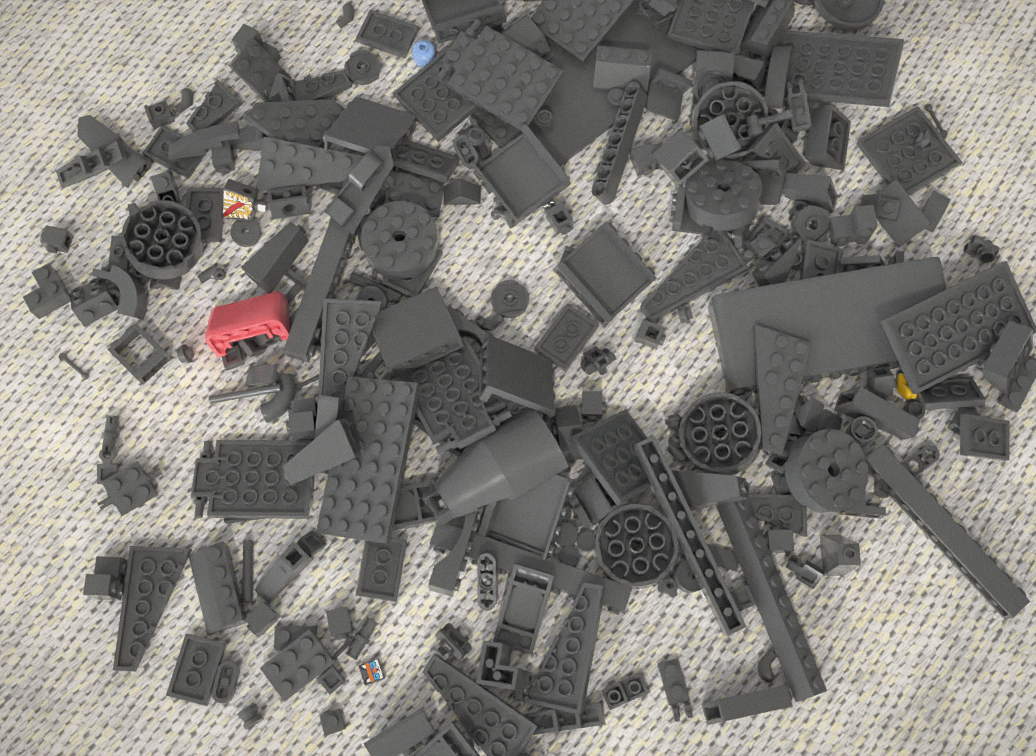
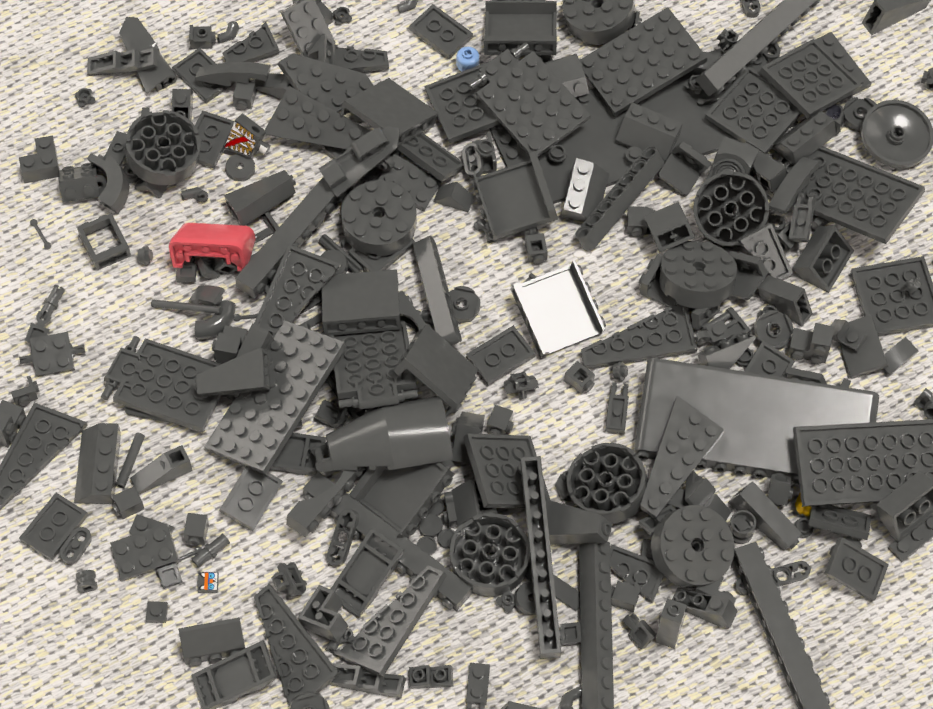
camera: 15 degrees right, 10 degrees down
(56, 239) = (66, 118): dark grey brick -> none
(63, 208) = (84, 92): none -> dark grey plate
(118, 541) = (27, 394): none -> dark grey bracket
(287, 44) = (342, 11): none -> dark grey plate
(288, 202) = (289, 152): dark grey brick -> none
(311, 543) = (197, 454): dark grey plate -> none
(354, 63) = (405, 63): dark grey plate -> none
(427, 455) = (331, 414): none -> dark grey bracket
(483, 294) = (437, 290): none -> beam
(583, 147) = (584, 190): none -> dark grey slope
(673, 421) = (568, 459): dark grey plate -> none
(697, 354) = (617, 410): none -> dark grey hinge
(718, 138) = (710, 219): dark grey slope -> none
(755, 123) = (750, 220): dark grey brick -> none
(856, 524) = (708, 607): none -> dark grey slope

